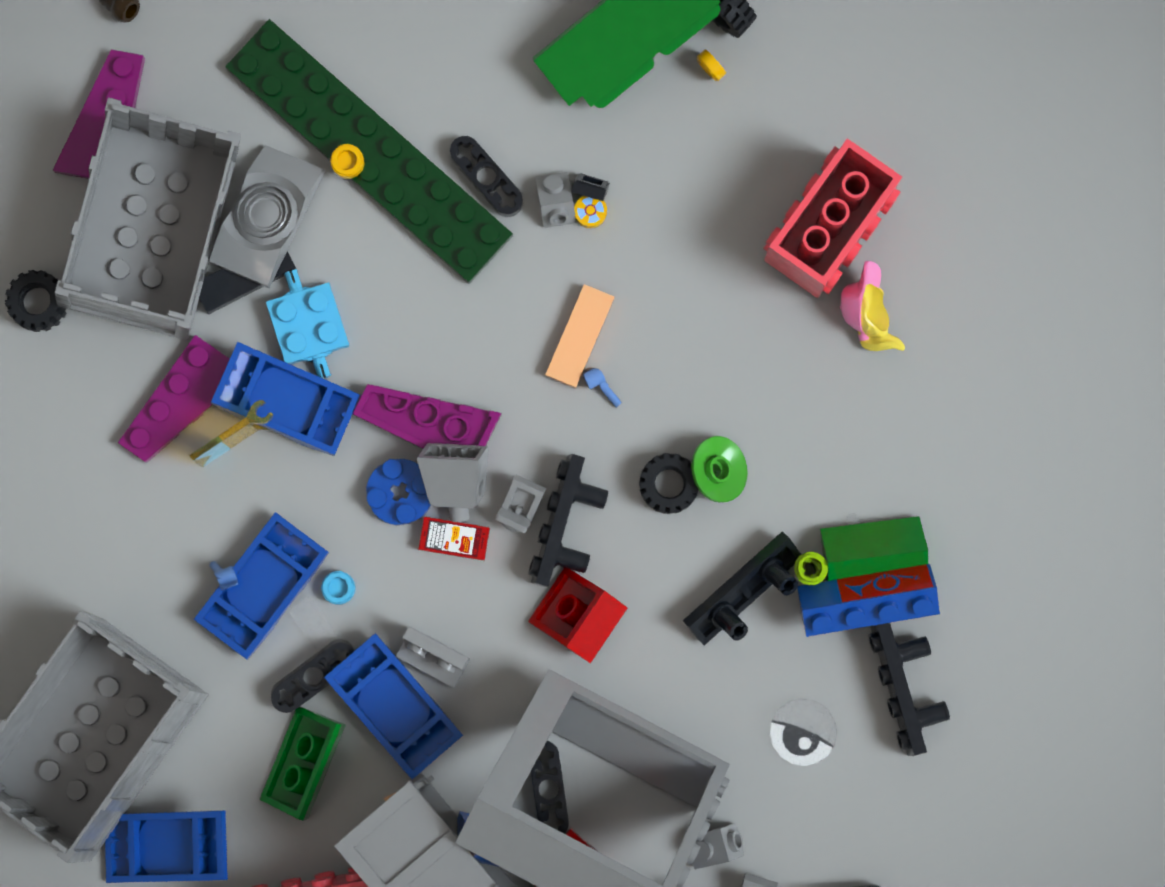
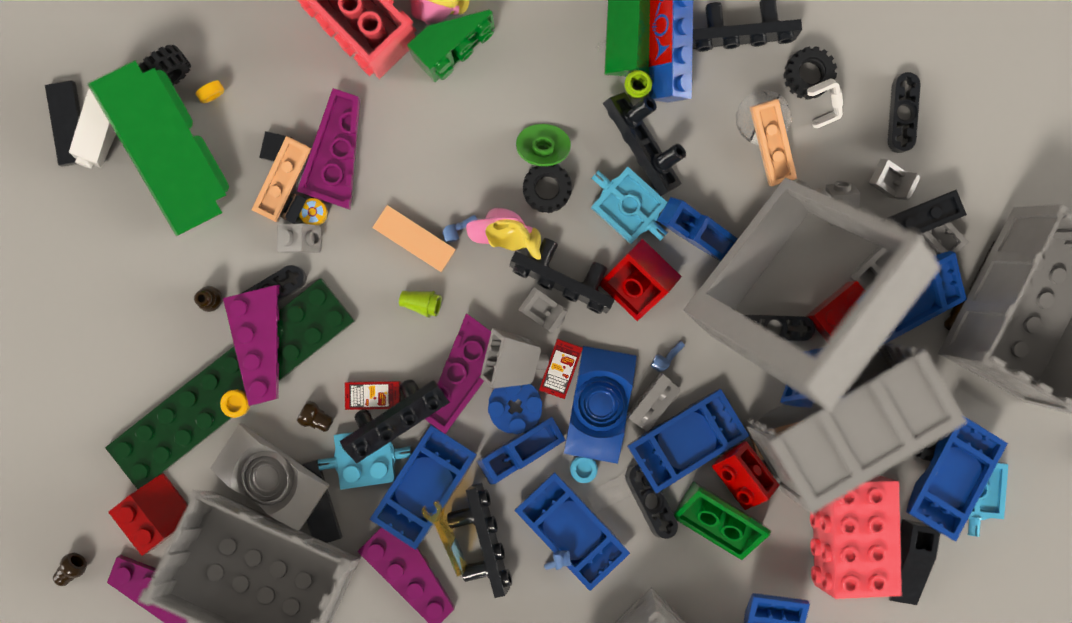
camera: 80 degrees left, 5 degrees up
(200, 87) = (150, 514): none -> red slope
(222, 494) = (486, 529): none -> black plate
(346, 256) = (314, 417): none -> dark brown piece
(347, 508) = (520, 451): none -> blue slope
(359, 353) = (395, 421): none -> black plate
(363, 782) = (745, 475): none -> red brick
(384, 320) = (372, 395): none -> tile
(419, 593) = (600, 404): none -> blue slope
(428, 171) = (254, 332): none -> magenta wing
(465, 107) = (208, 299): none -> dark brown piece
(481, 659) = (662, 363): none -> medium blue hand
(505, 359) = (423, 302): none -> lime cone
(608, 443) = (505, 230): none -> light yellow hair
(623, 167) = (282, 179): none -> light nougat tile
(652, 671) = (696, 228): none -> blue slope
(659, 154) = (271, 145): none -> black tile
(662, 222) = (332, 156): none -> magenta wing
(665, 586) = (629, 205): none -> medium azure plate
(773, 747) = (773, 142): none -> light nougat tile
(814, 329) = (447, 42): none -> green slope
(842, 813) = (836, 98): none -> white piece
(888, 778) = (813, 56): none -> black tyre

